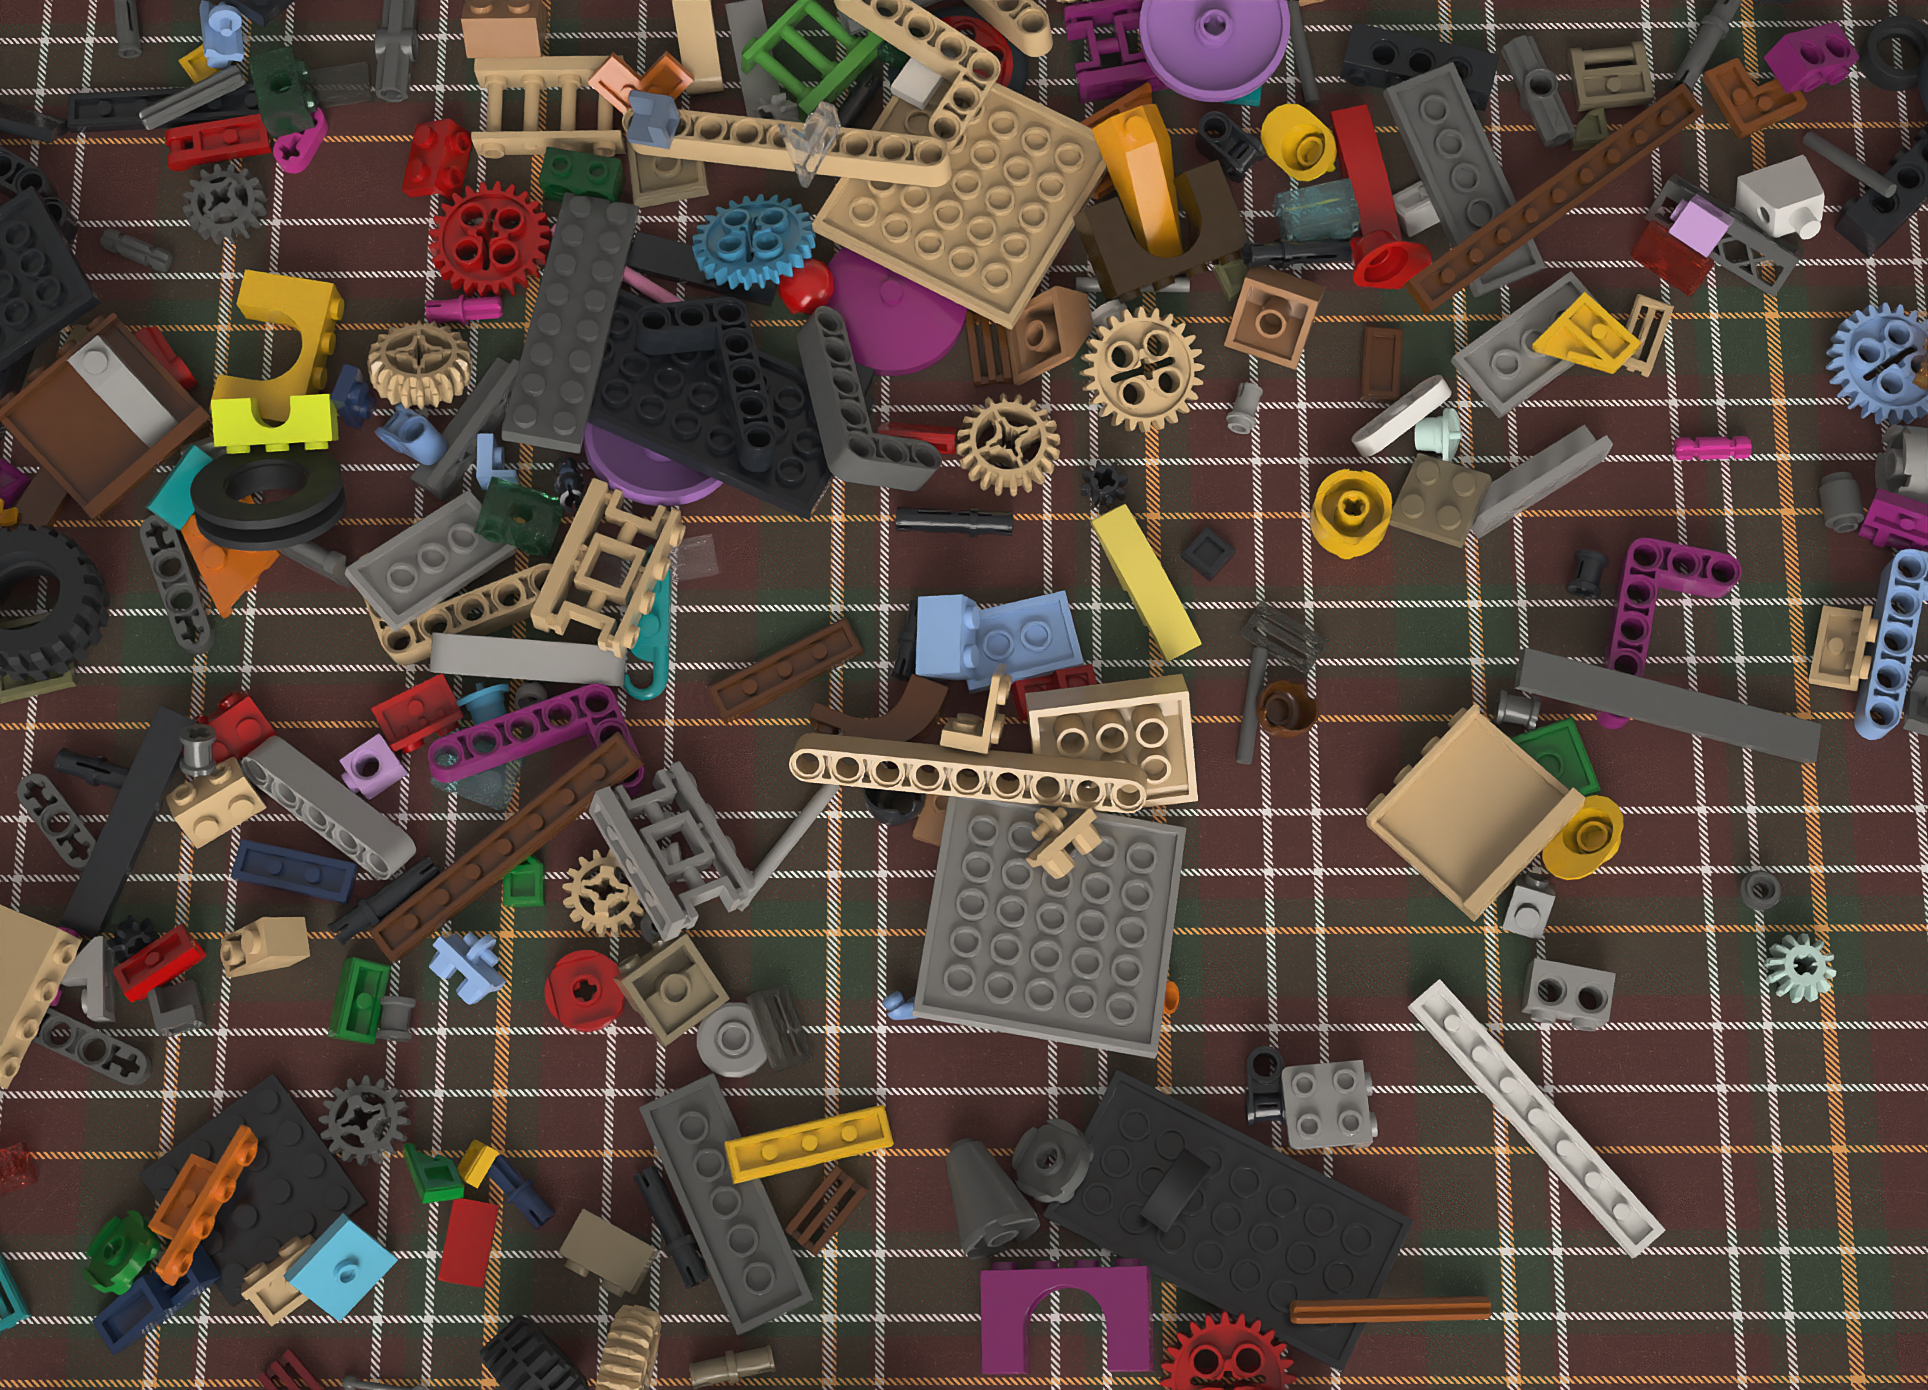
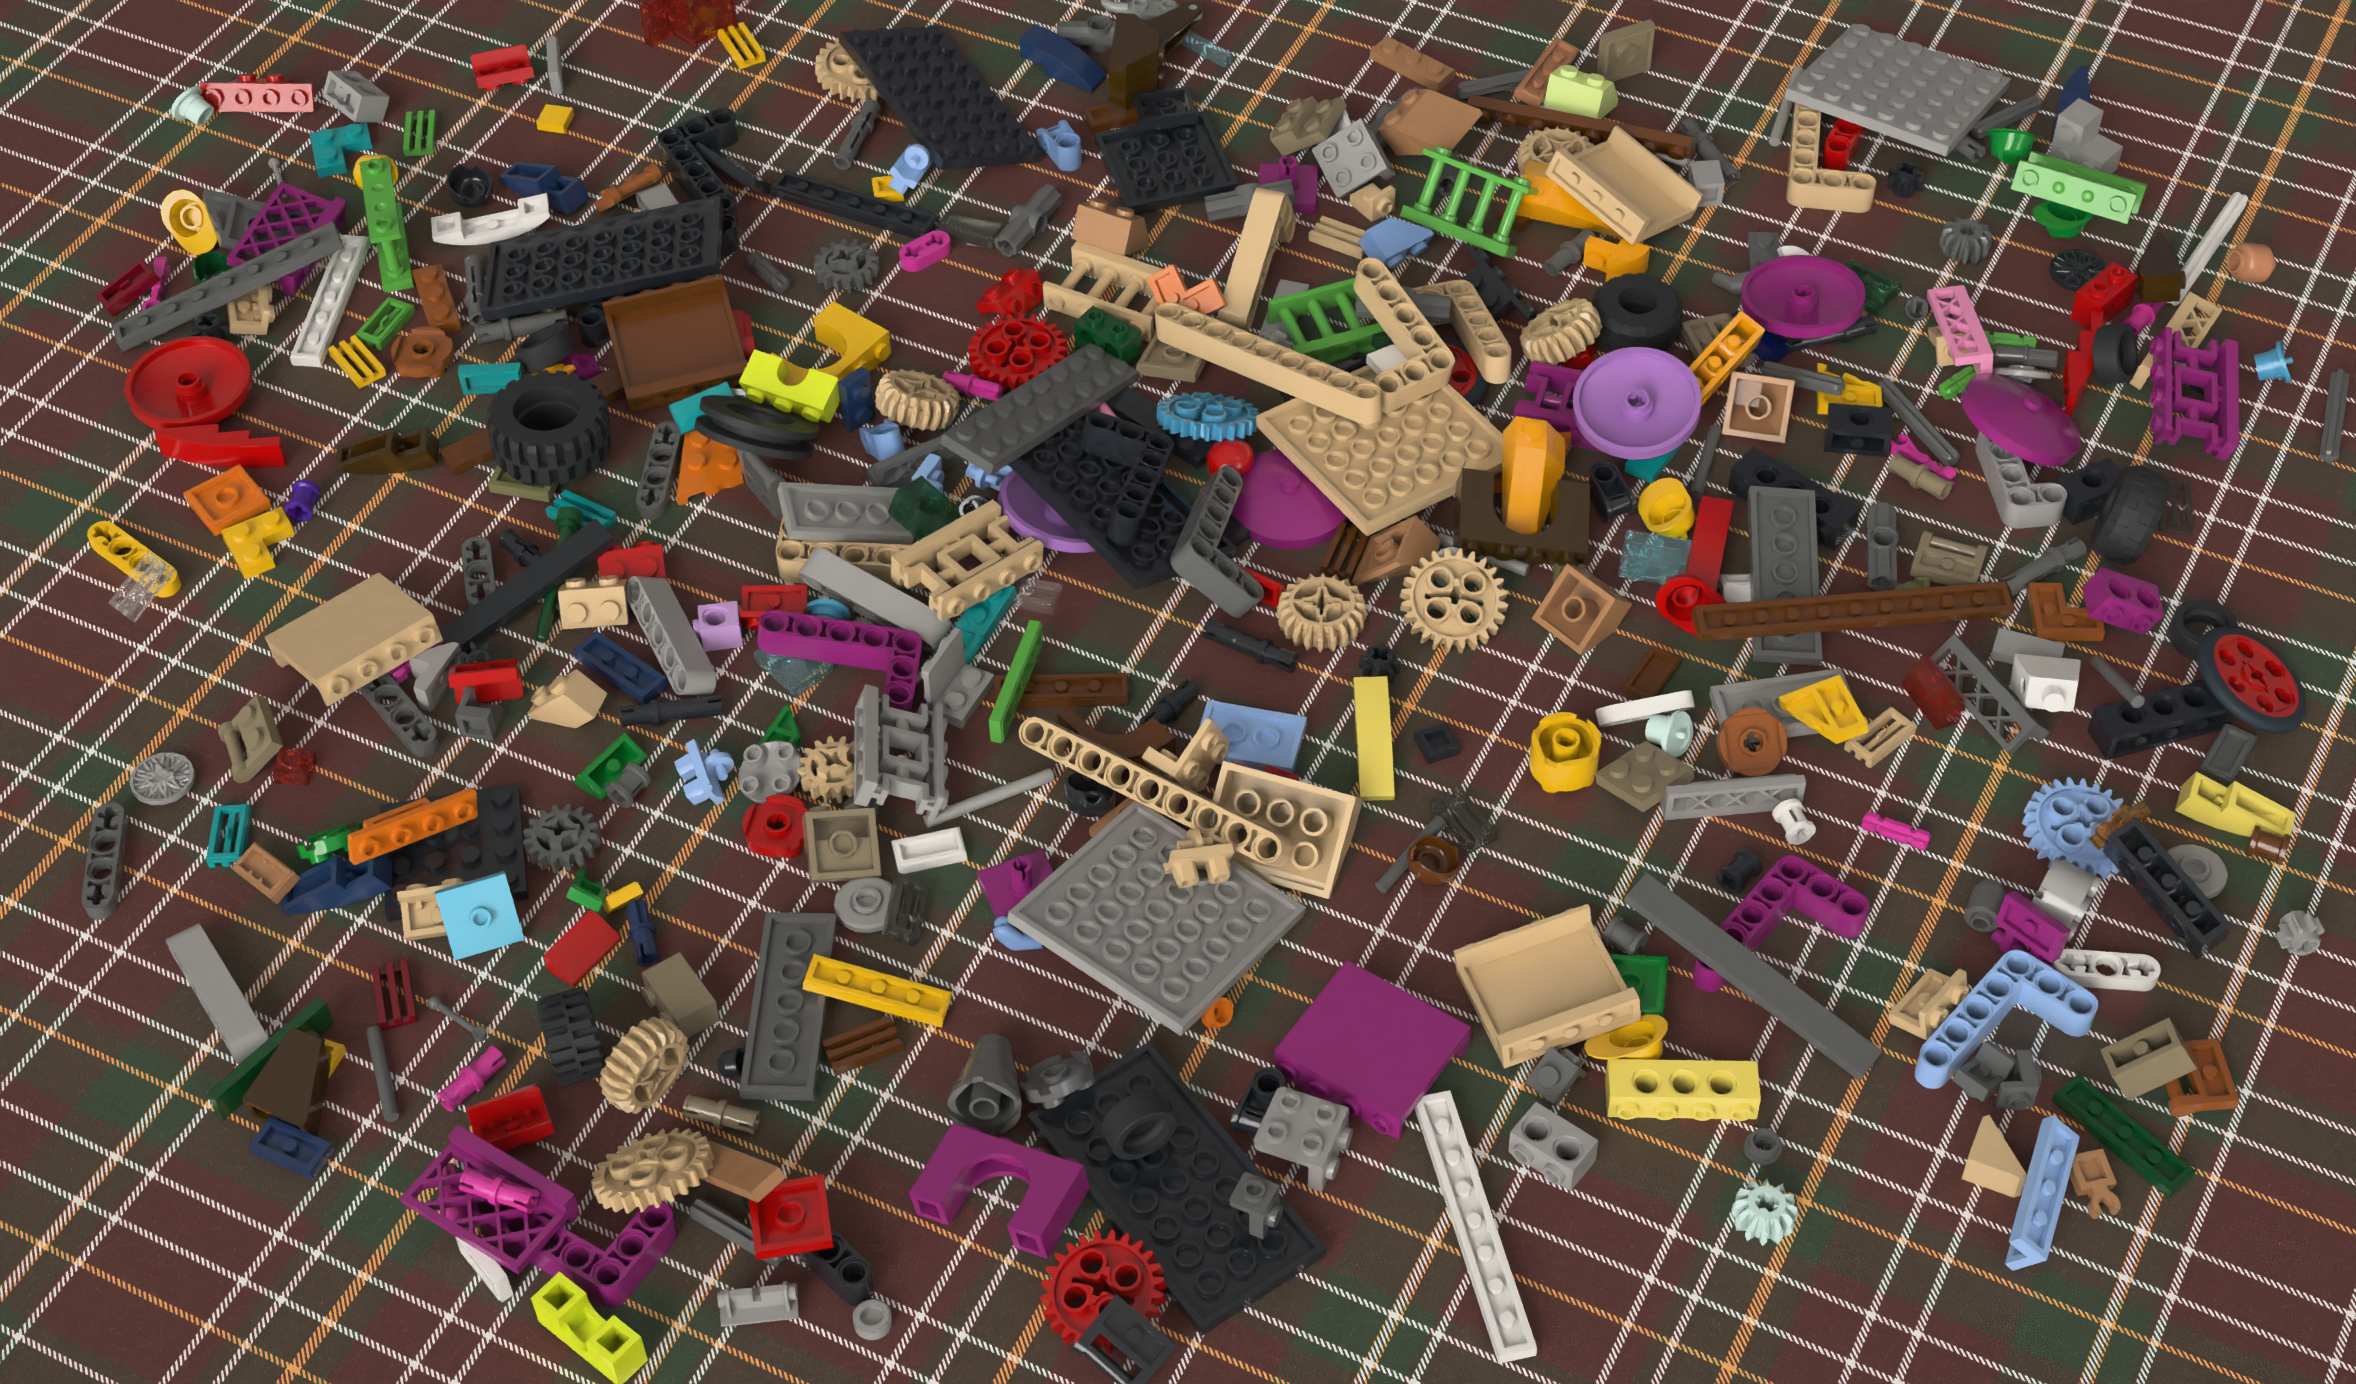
camera: 25 degrees right, 25 degrees down
(67, 1321) = (265, 873): none -> medium nougat plate
(92, 683) = (588, 508): none -> teal tile
(123, 390) = (698, 324): light grey slope -> none
(124, 714) = (569, 522): none -> dark green piece
(191, 97) = (865, 197): dark grey axle -> none
(197, 749) = (602, 554): dark grey bush -> none
(217, 141) = (872, 230): red plate -> none
(273, 74) = (928, 213): clear green brick -> none
(505, 848) = (777, 707): reddish brown tile -> none
(537, 927) = (769, 770): none -> light grey dish
(653, 119) = (1180, 307): sand blue panel -> none
(676, 724) = (954, 682): none -> light grey bracket
(677, 1240) = (736, 1015): black pin -> none
(708, 1303) = (731, 1063): none -> black hinge
(741, 693) = (1016, 681): none -> bright green tile
(759, 940) = (929, 850): none -> white tile
(810, 146) = (1282, 353): clear slope -> none
(881, 942) = (1013, 880): none -> magenta tile
(947, 637) = (1193, 698): light blue brick -> none
(1242, 418) = (1517, 665): light grey pin -> none
(1285, 253) = (1613, 569): black pin -> none
(1334, 1218) = (1260, 1200): none -> dark grey bracket
(1339, 968) = (1370, 1048): none -> magenta panel
(1390, 1309) = (1267, 1298): dark orange axle -> none
(1509, 409) = (1763, 727): none -> dark orange plate
(1611, 486) = (1794, 821): none -> white bush
(1699, 224) = (1964, 671): lavender brick -> none
(1709, 831) = (1696, 1077): none -> light yellow brick
(1735, 156) = (2011, 643): none -> light grey tile

